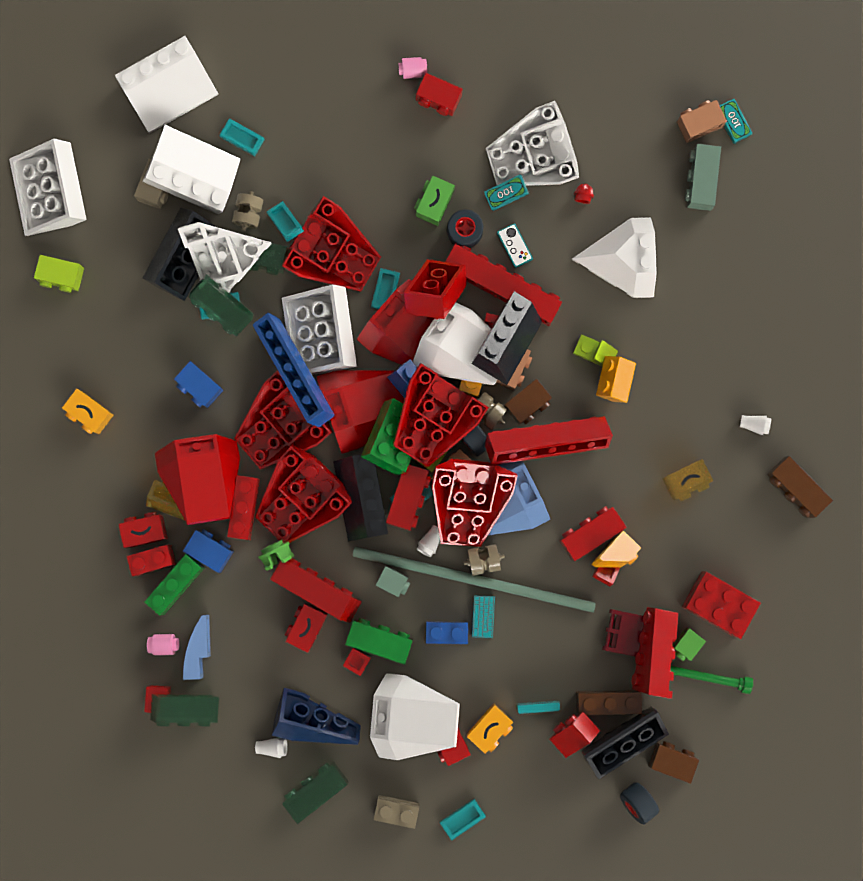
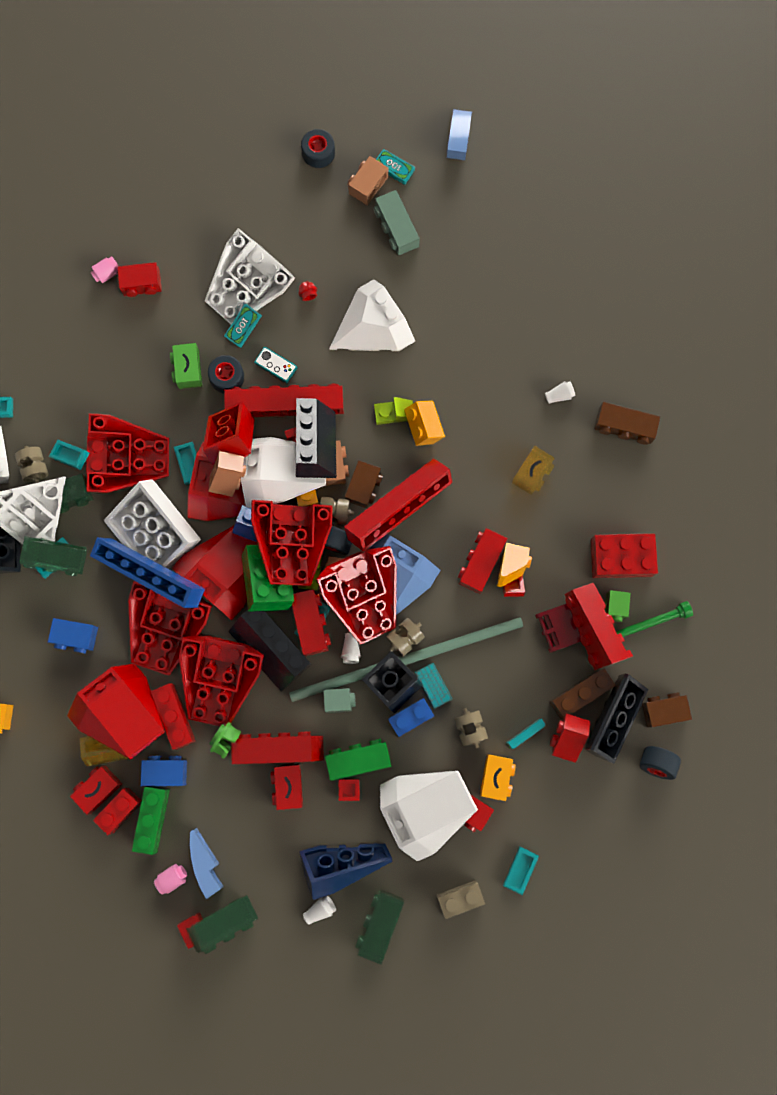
camera: 30 degrees left, 5 degrees down
(412, 324) = (226, 474): none -> nougat brick
(449, 592) = (392, 682): none -> black slope
(493, 673) = (471, 728): none -> dark tan wheel
(677, 57) = (318, 148): none -> black wheel
(813, 125) = (459, 134): none -> slope

